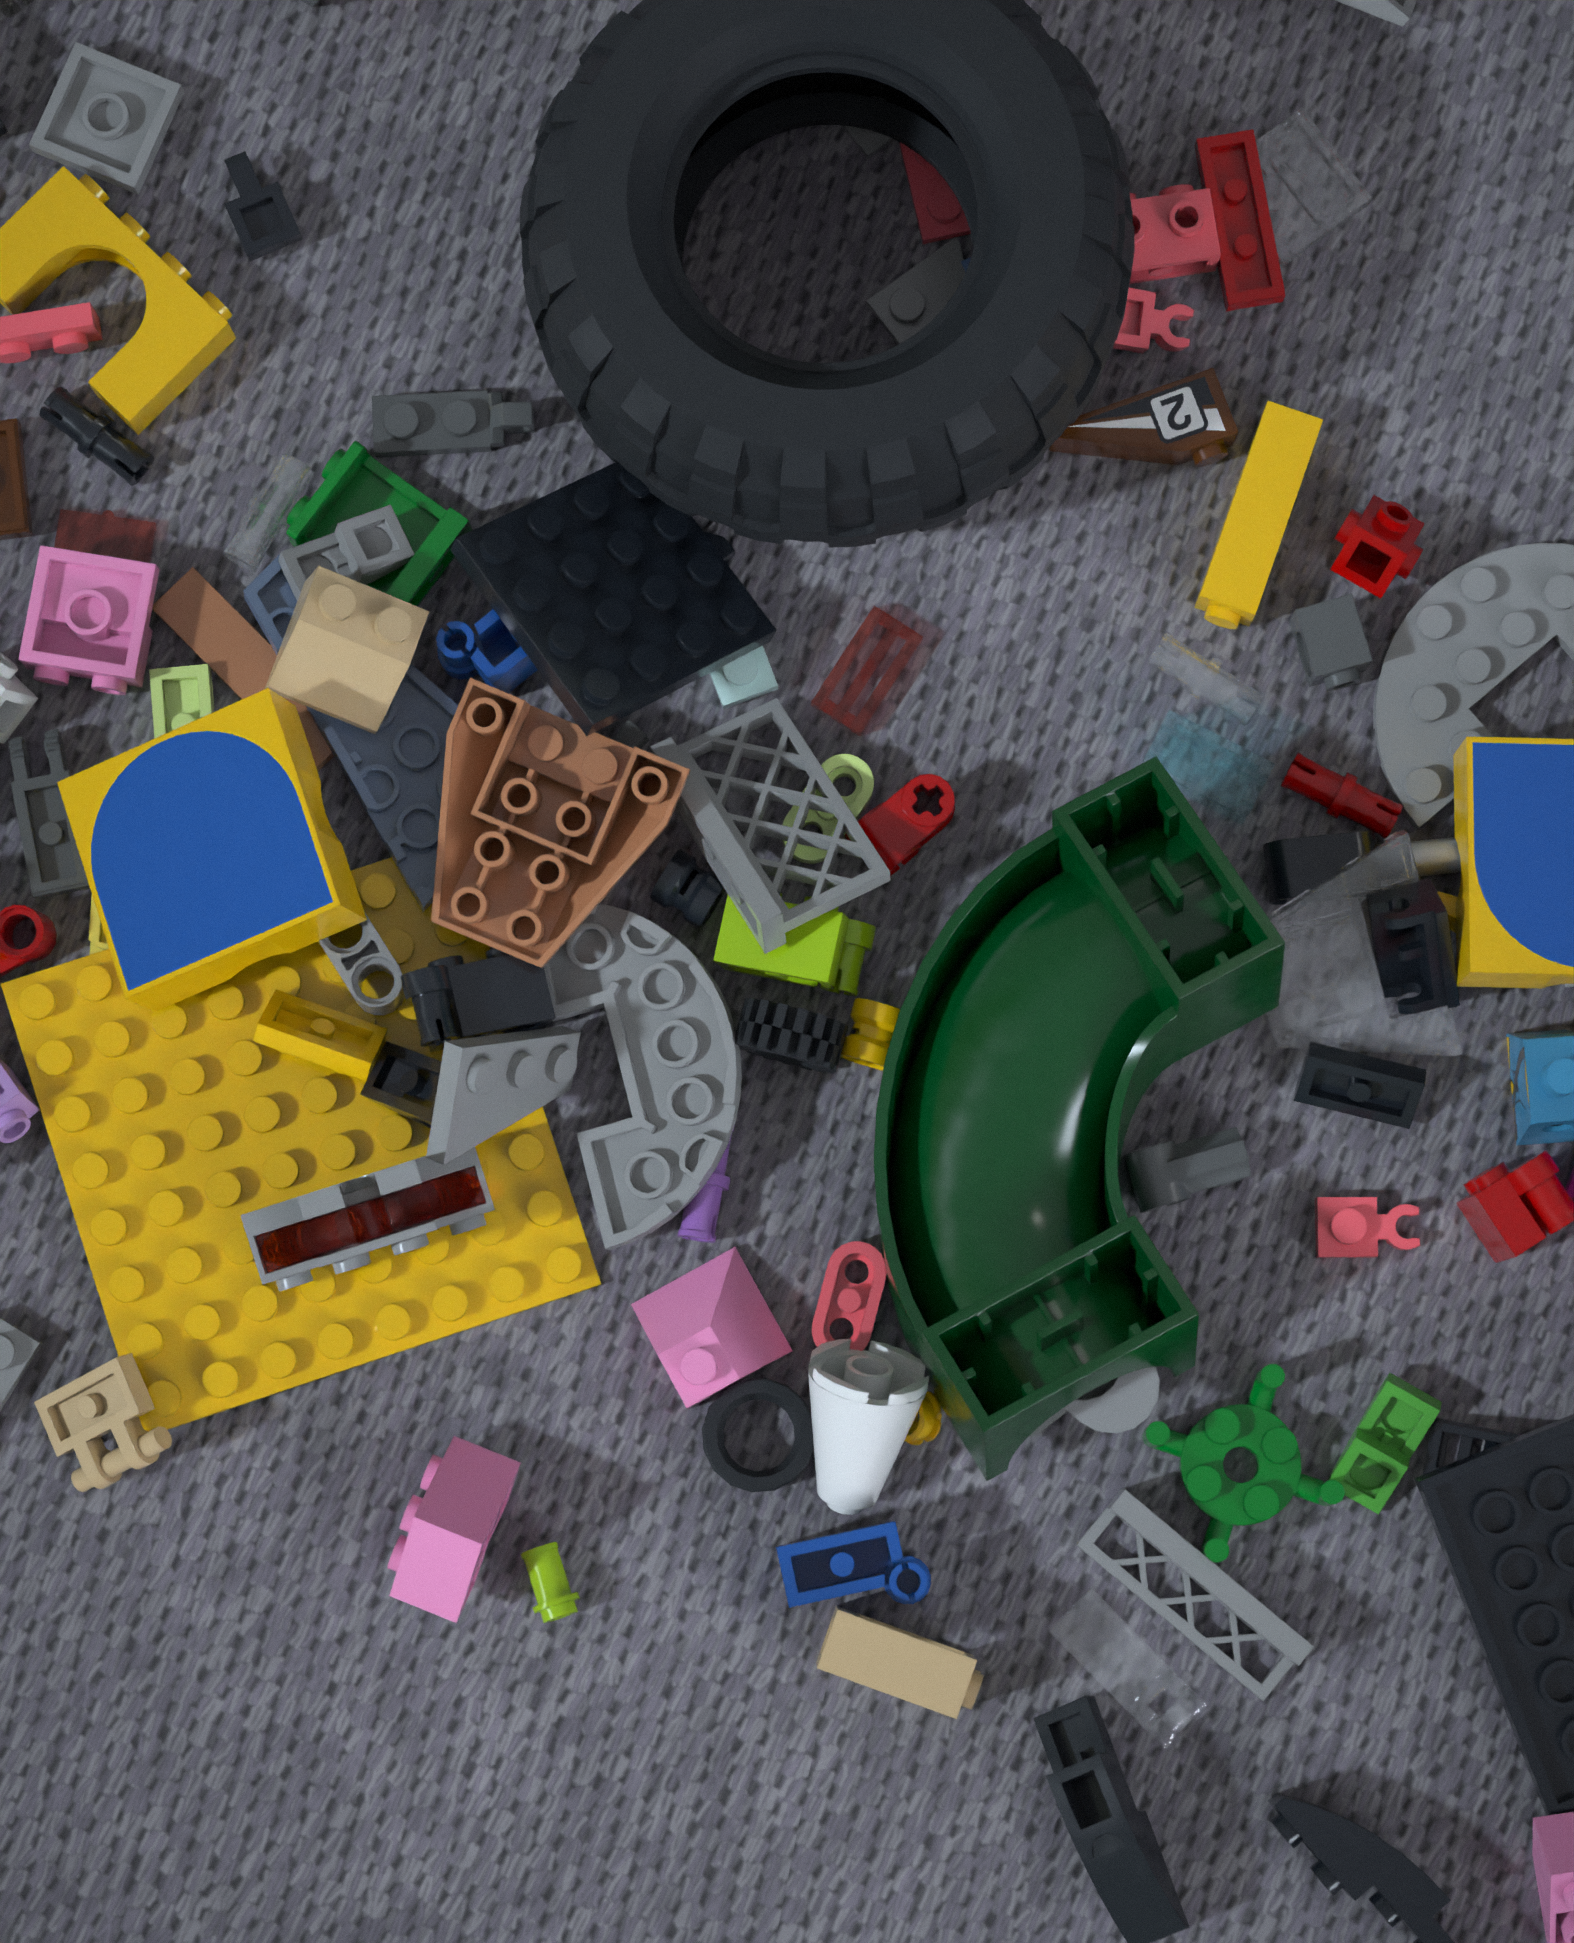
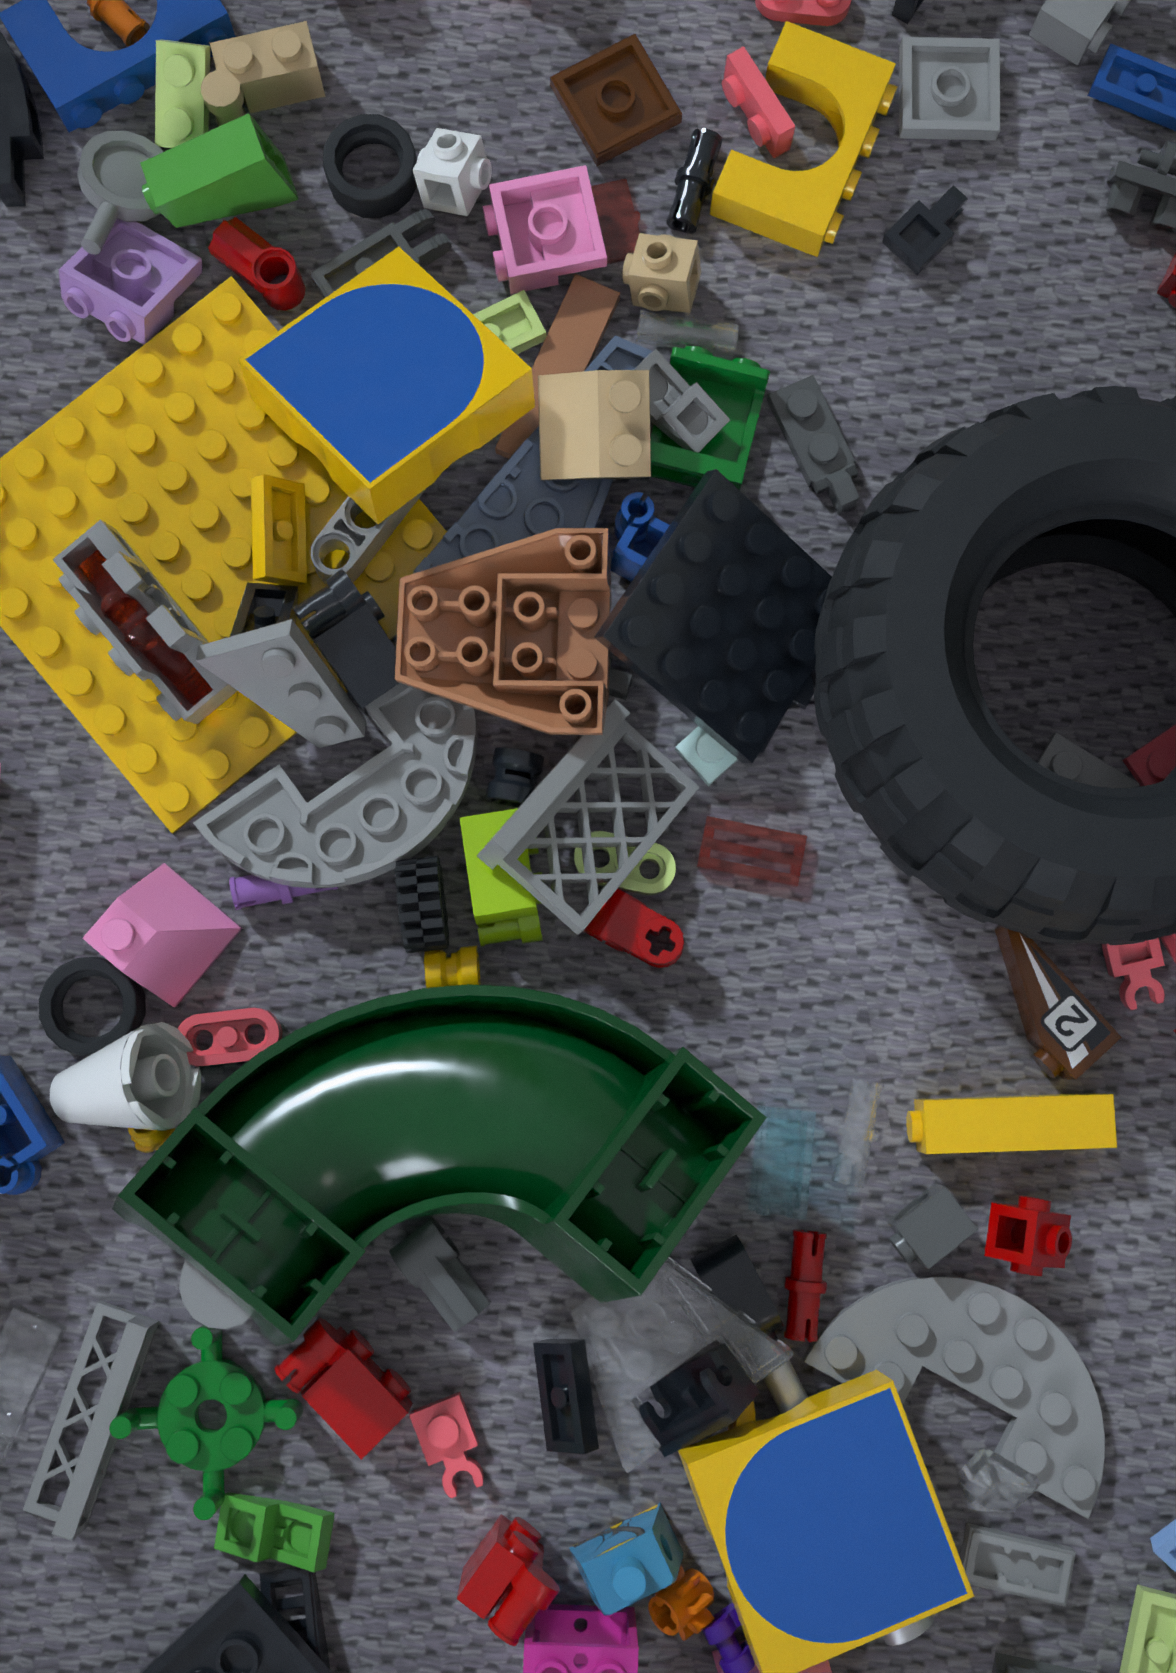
camera: 65 degrees right, 0 degrees up
(194, 511) = (663, 272): none -> tan brick
(1267, 1307) = (346, 1385): none -> red hinge

